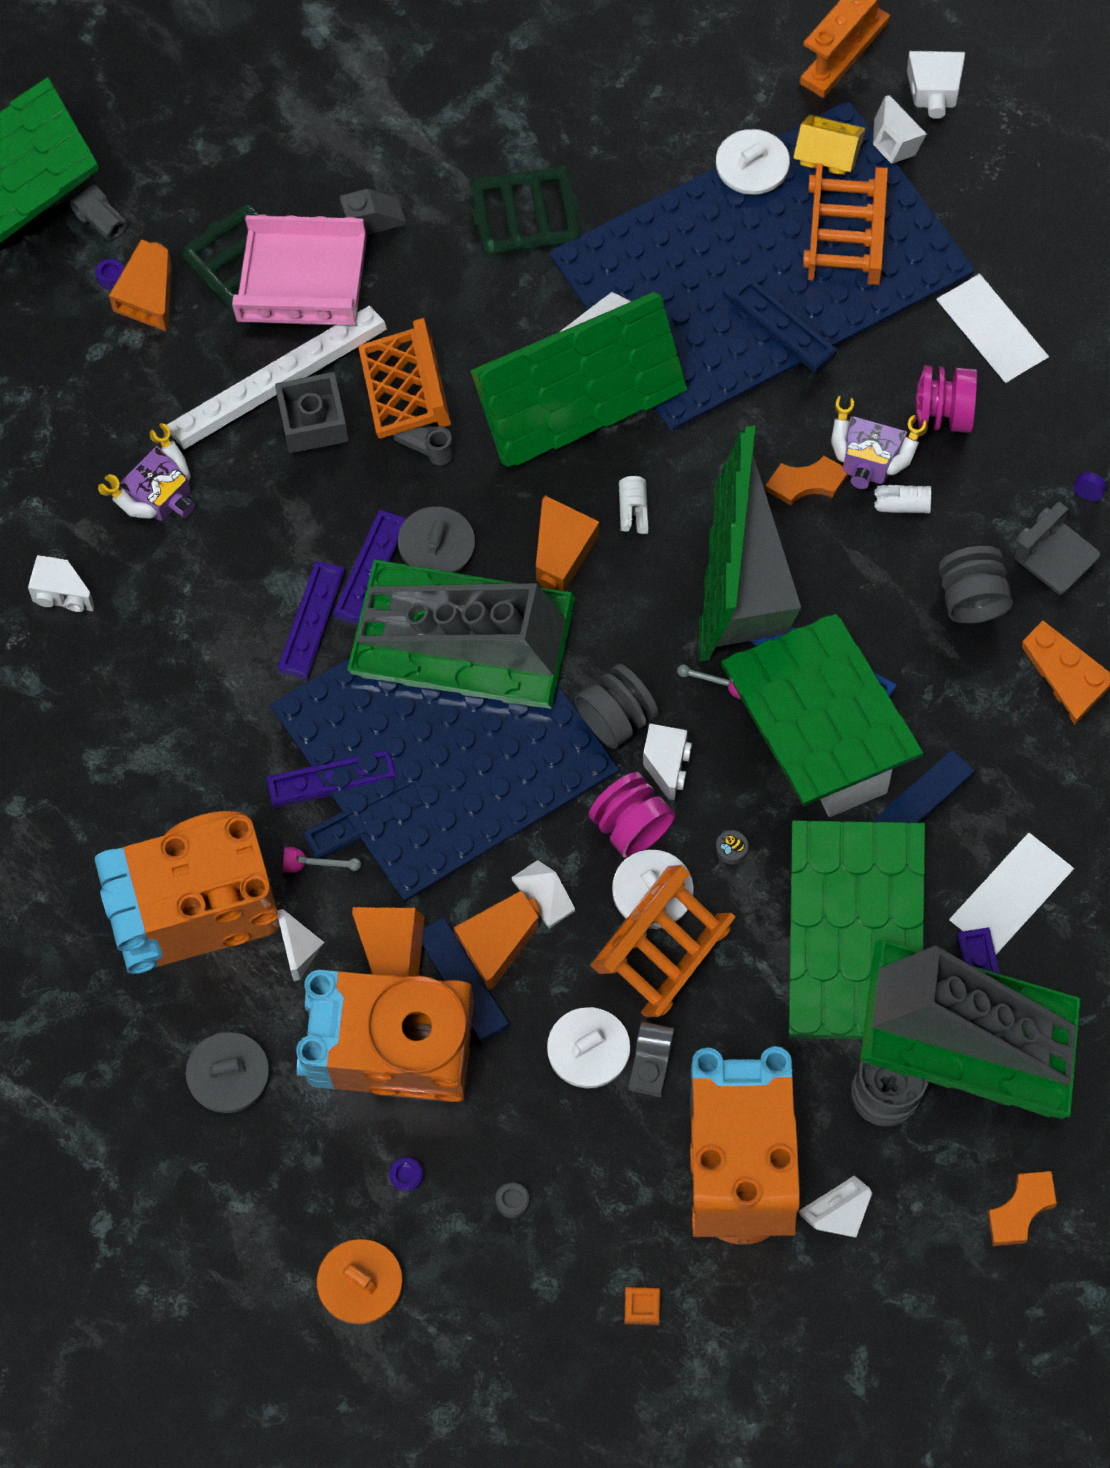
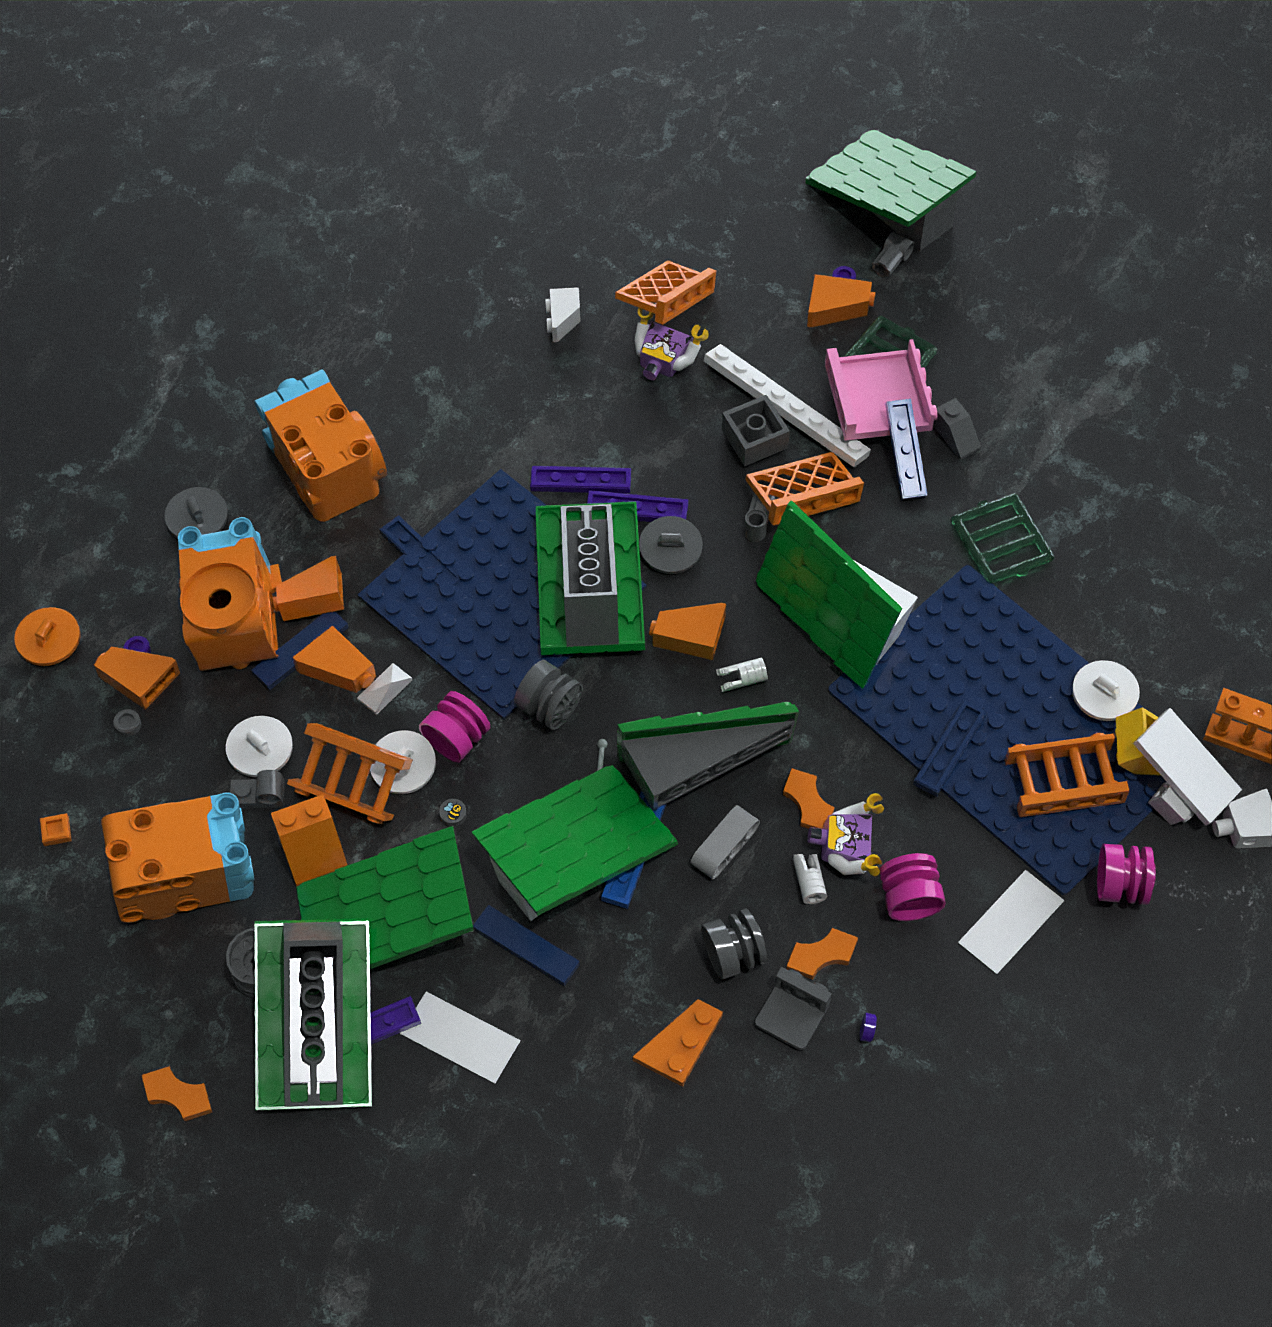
camera: 75 degrees right, 5 degrees down
(92, 441) = (647, 289): none -> orange fence
(295, 860) = (374, 514): hinge -> none
(299, 943) = (304, 532): white slope -> none
(305, 785) = (438, 507): dark purple tile -> none
(388, 265) = (906, 449): none -> tile
(450, 1177) = (136, 673): none -> orange slope
(664, 757) = (516, 745): white slope -> none
(743, 1001) = (309, 839): none -> orange slope
(839, 1209) = (153, 952): white slope -> none
(841, 571) = (725, 842): none -> light grey beam
(875, 107) = (1187, 766): none -> white tile
(977, 202) = (1128, 874): none -> dark pink wheel
(990, 500) = (833, 949): none -> orange tile

